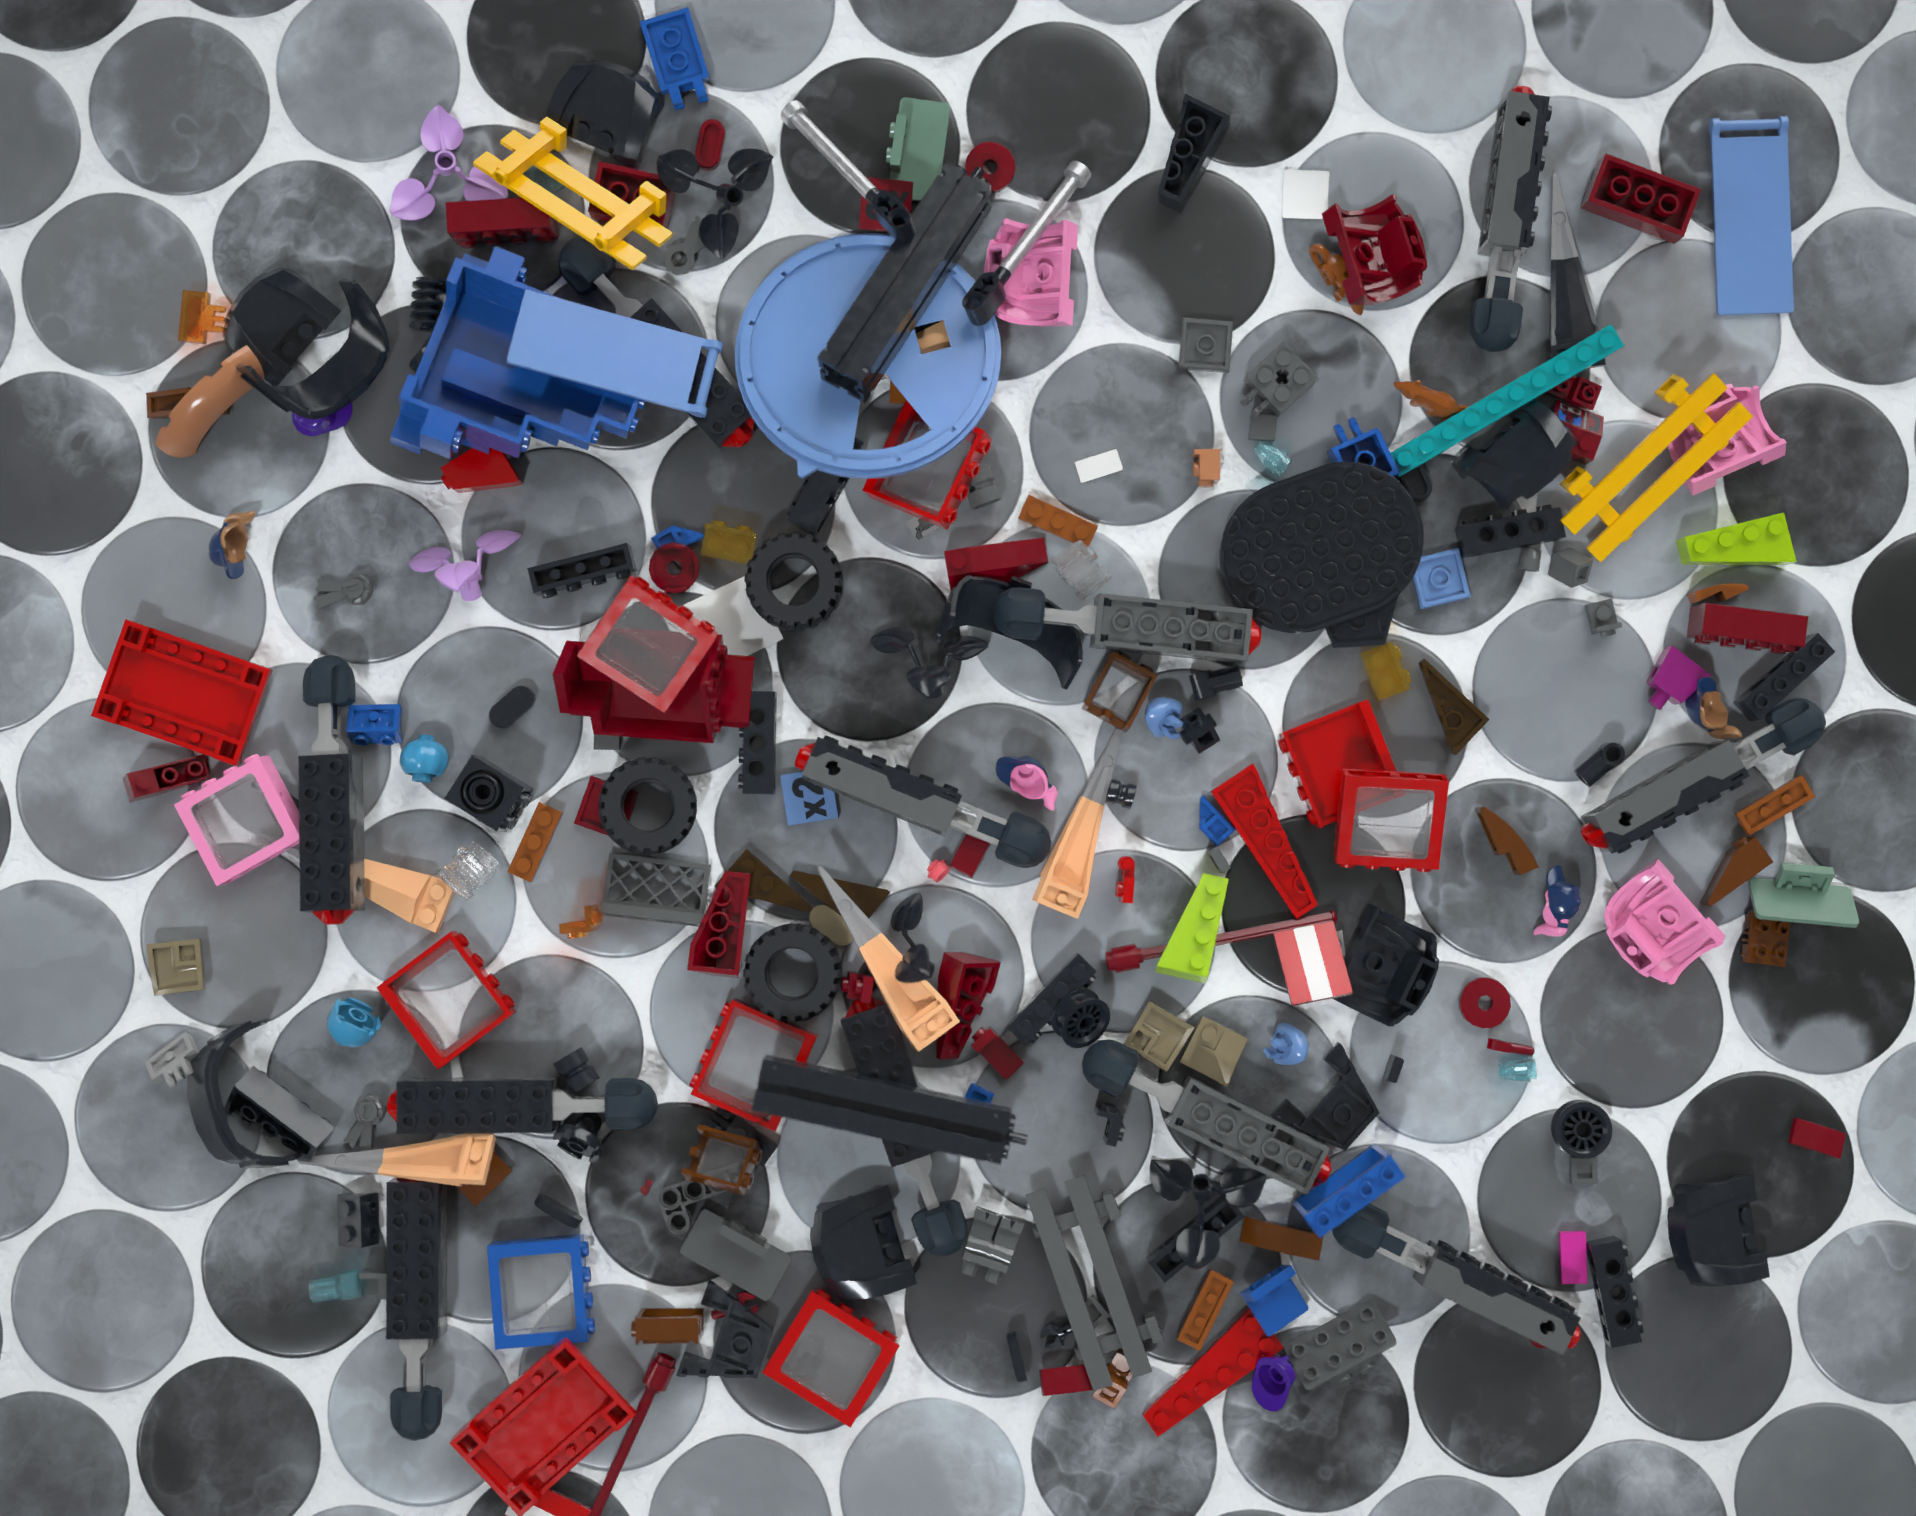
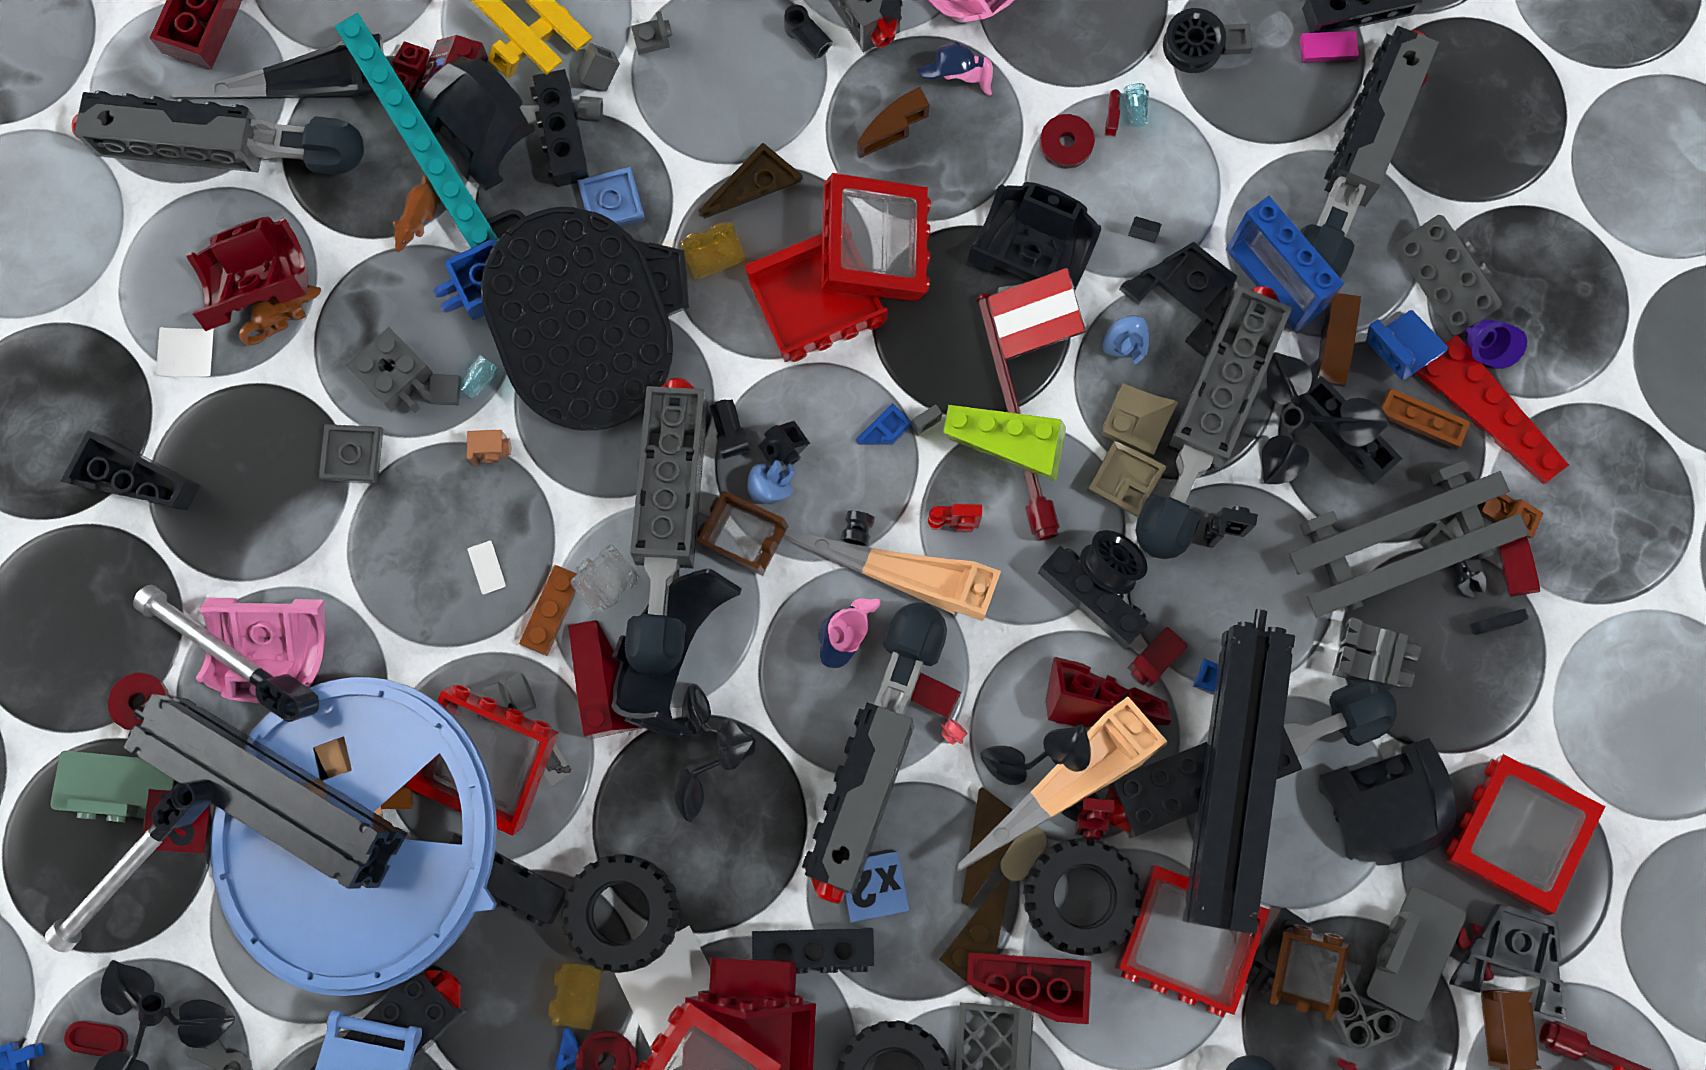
camera: 90 degrees left, 10 degrees down
(1256, 821) = (880, 382): red wing -> none

